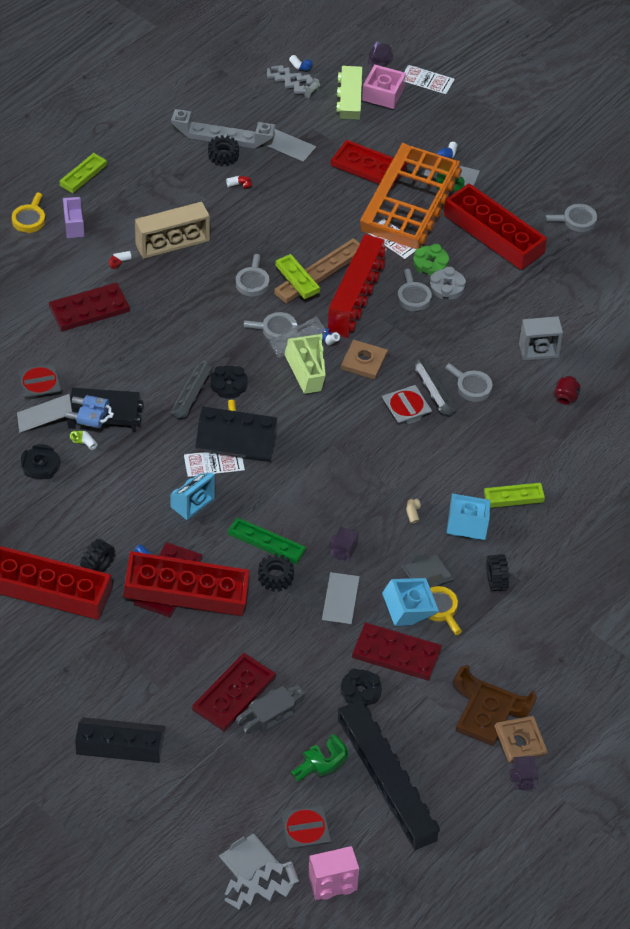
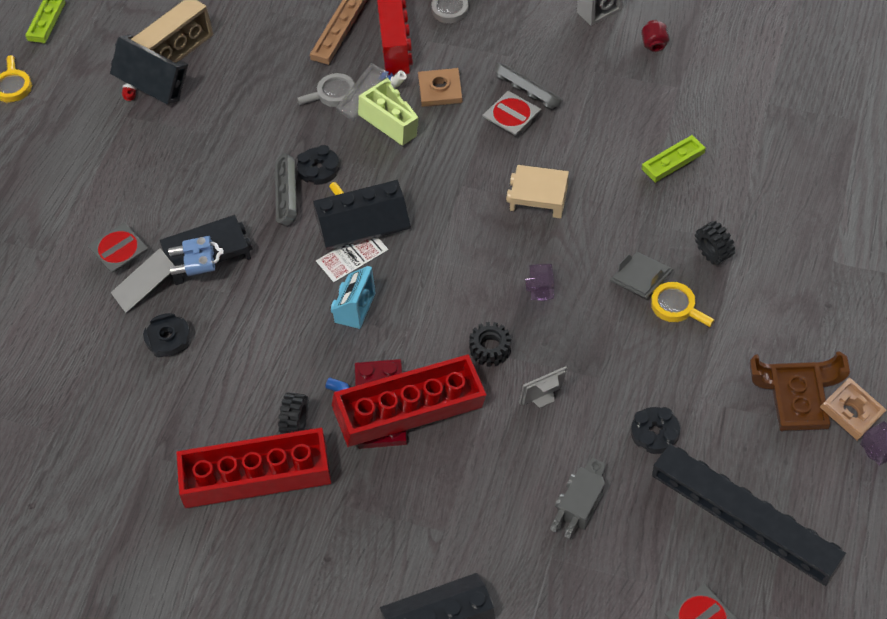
camera: 20 degrees left, 5 degrees up
(73, 217) = (59, 66): lavender panel -> none
(83, 437) = (200, 288): arm -> none
(89, 306) = (127, 149): dark red plate -> none
(137, 250) = (148, 70): none -> black panel
(233, 692) = (527, 498): dark red plate -> none
(252, 280) = (280, 55): light grey piece -> none
(266, 540) = (457, 314): green tile -> none
(293, 619) = (541, 390): none -> light grey piece
(297, 276) = (327, 32): lime plate -> none
(320, 765) = (674, 538): green piece -> none
(340, 598) = (570, 341): light grey sticker -> none
(389, 473) = (538, 188): none -> tan panel
(397, 651) = (665, 372): dark red plate -> none
(409, 601) = (646, 312): medium azure slope -> none
(411, 510) = (582, 213): tan arm -> none
(468, 516) = (647, 199): medium azure slope -> none
(472, 385) = (559, 68): light grey piece -> none

